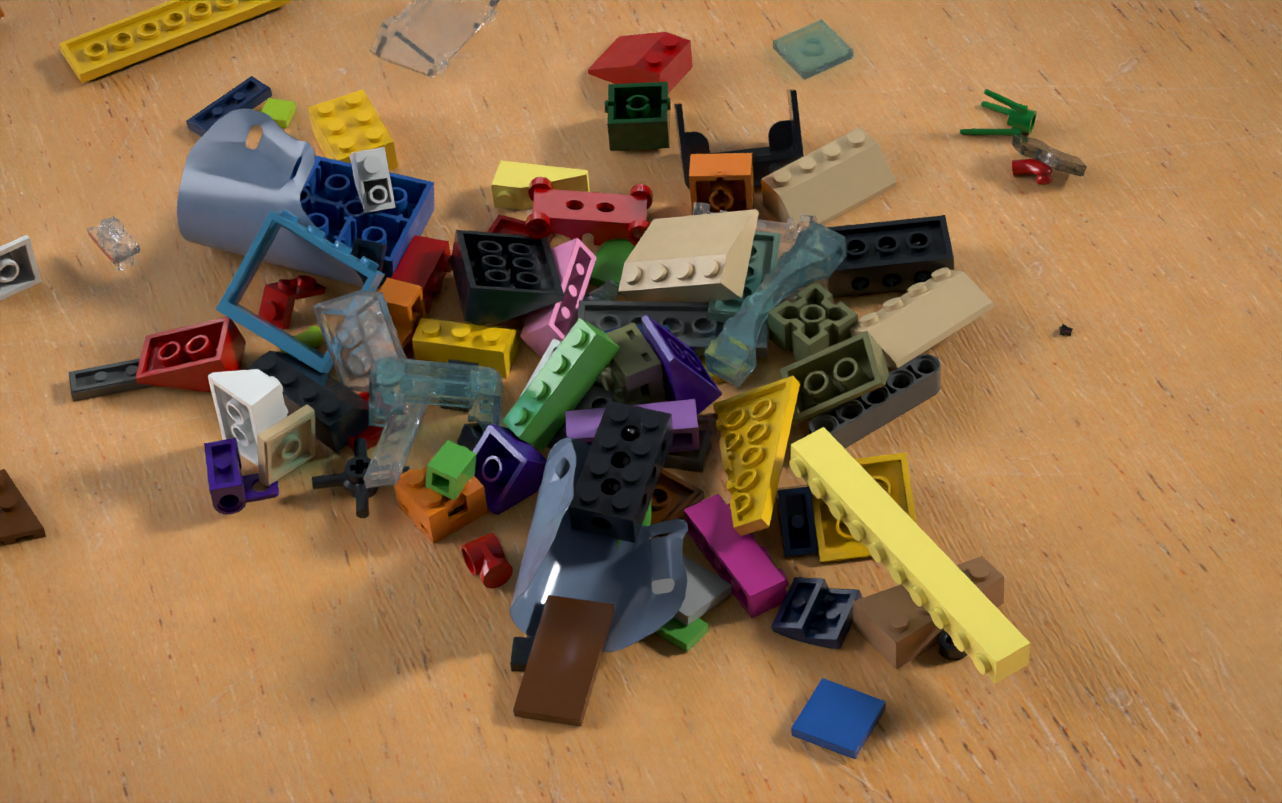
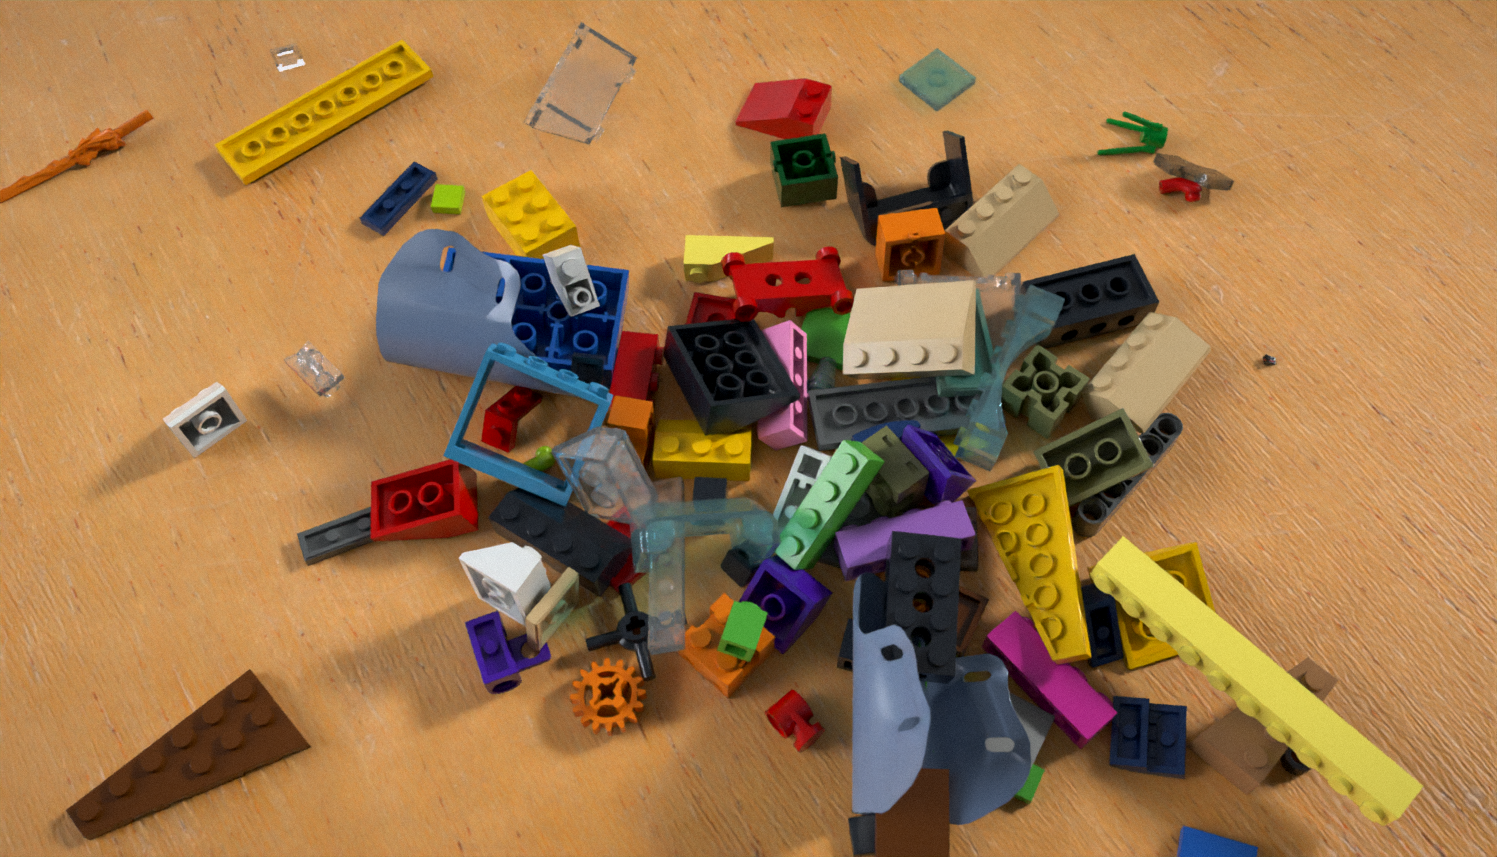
camera: 15 degrees left, 15 degrees up
(321, 523) = (616, 685): none -> orange gear

